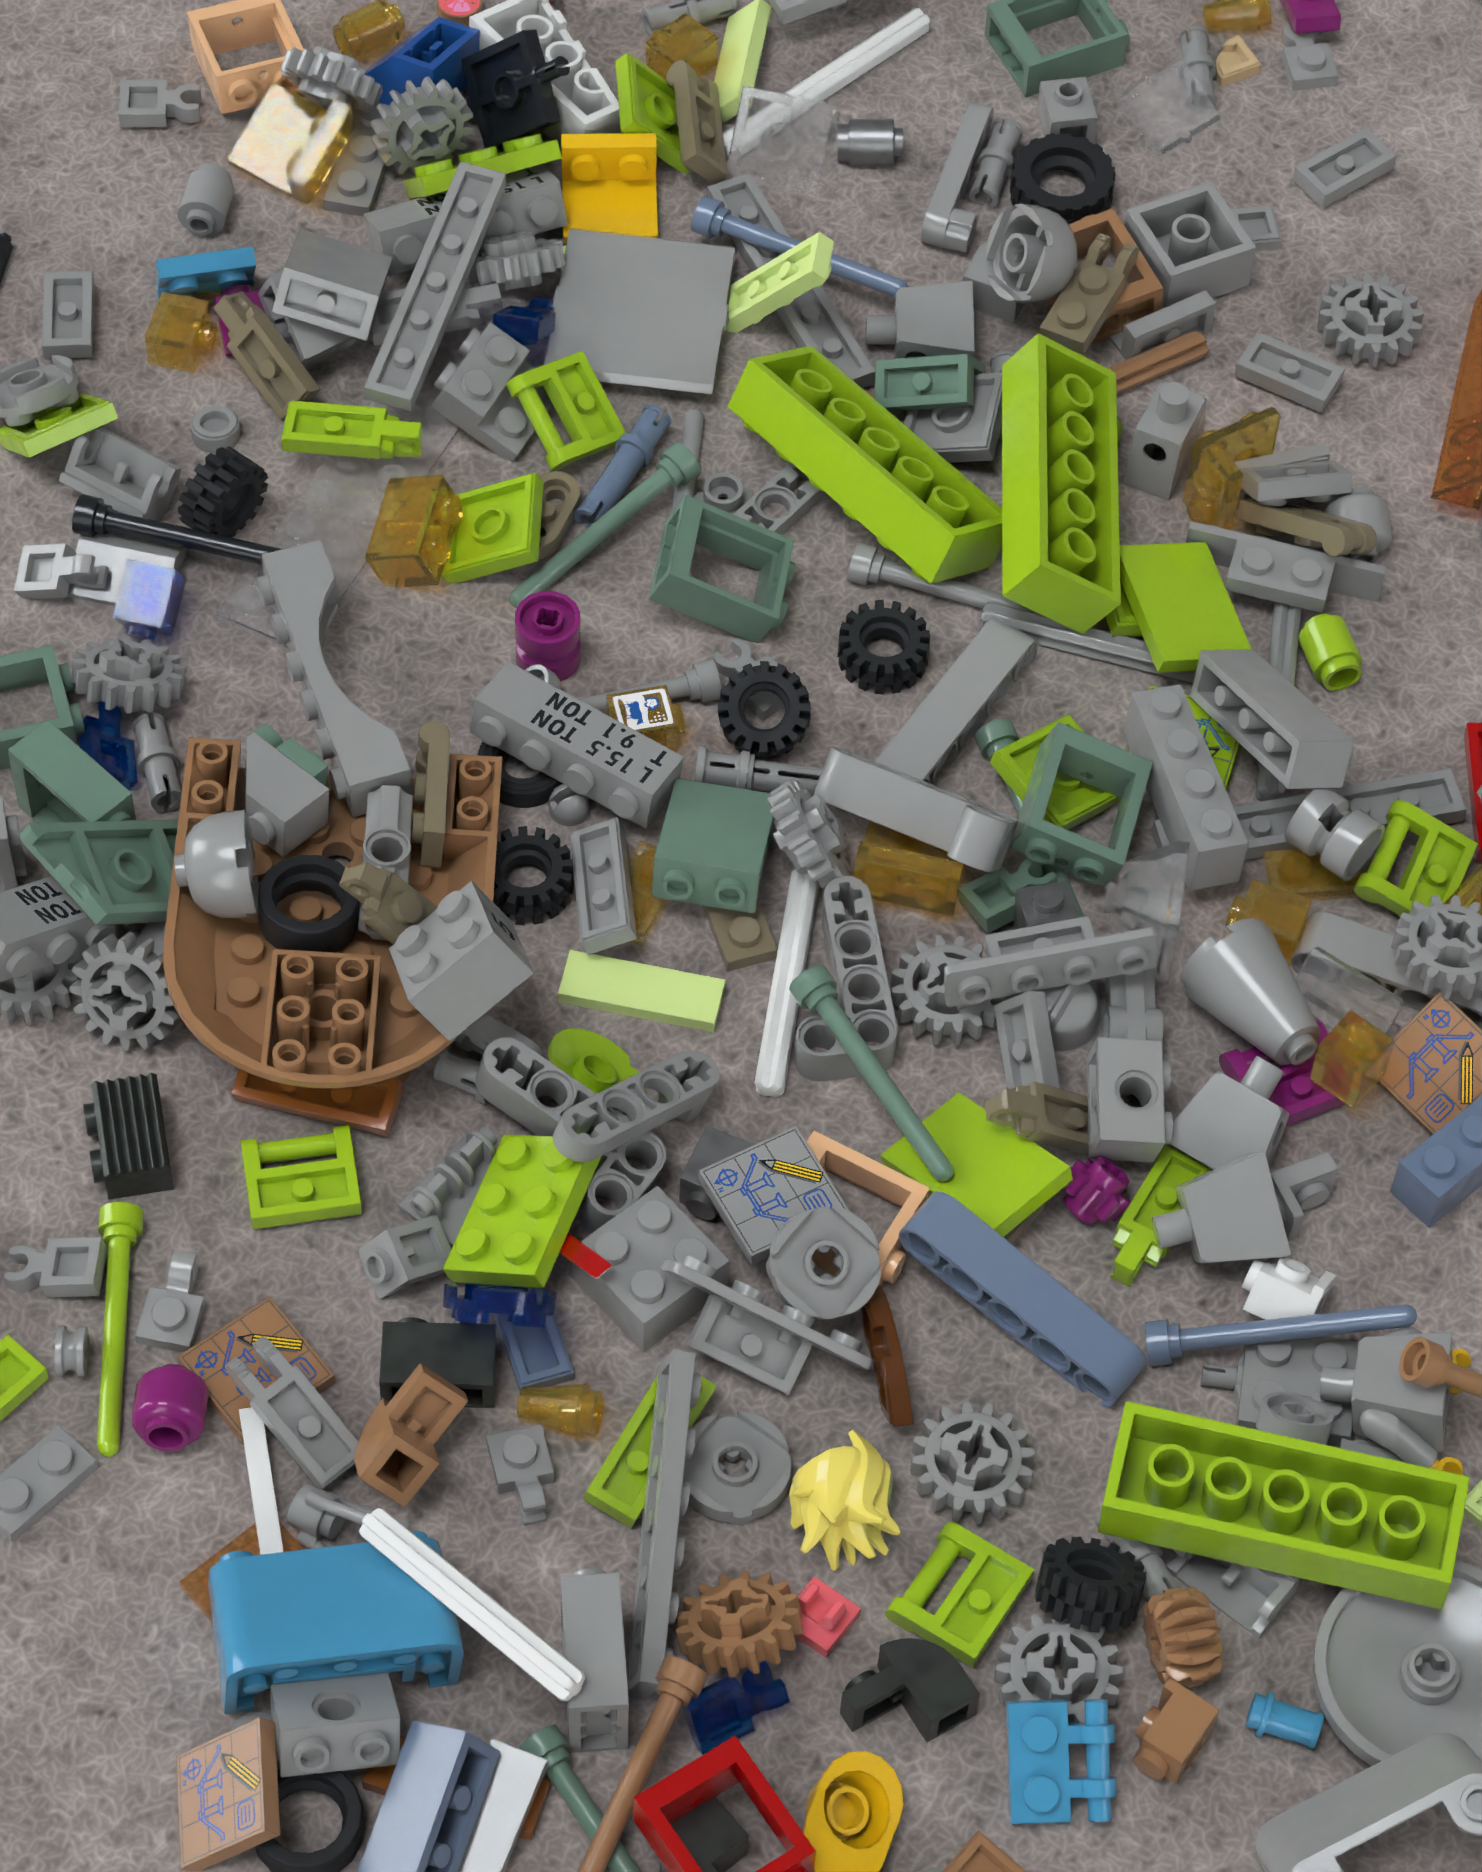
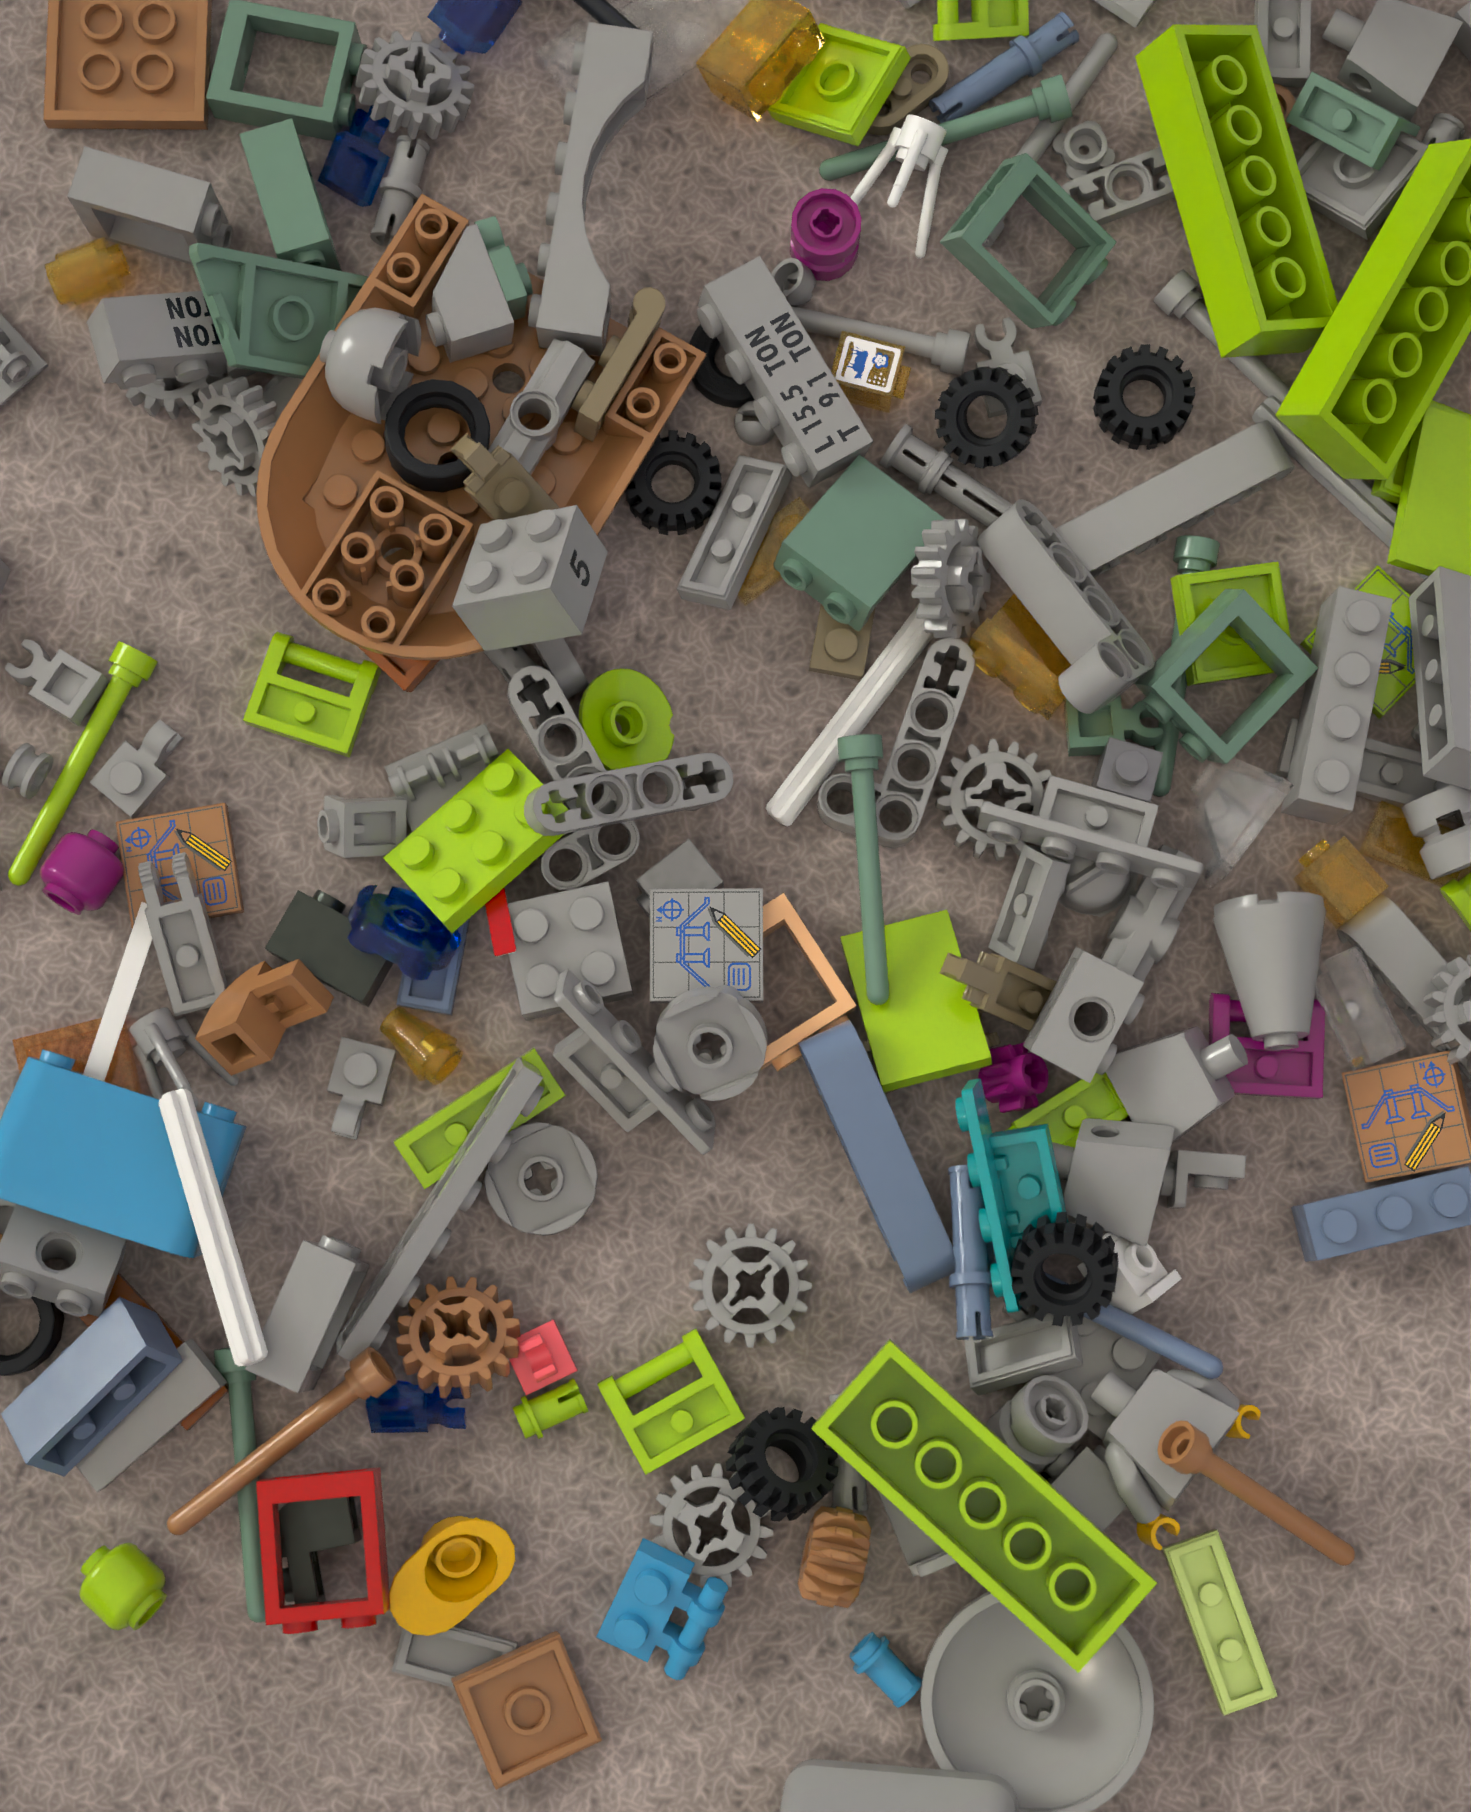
camera: 30 degrees right, 25 degrees up
(131, 1136) = (180, 580): pearl dark grey brick -> none
(589, 543) = (917, 146): none -> white plant
(641, 990) = (718, 655): yellowish green tile -> none
(844, 1501) = (610, 1273): light yellow hair -> none
(854, 1651) = (549, 1409): none -> lime pin
(888, 1362) = (726, 1154): reddish brown tile -> none
(920, 1679) = (590, 1469): pearl dark grey brick -> none
(1158, 1250) = (1015, 1179): none -> teal bracket
(1160, 1348) = (970, 1254): none -> sand blue pin
(1173, 1732) = (778, 1635): medium nougat brick -> none
(1240, 1388) = (1022, 1353): none -> light grey tile
(1269, 1290) = (1064, 1298): none -> black tyre
(1352, 1059) = (1323, 1077): clear yellow brick -> none

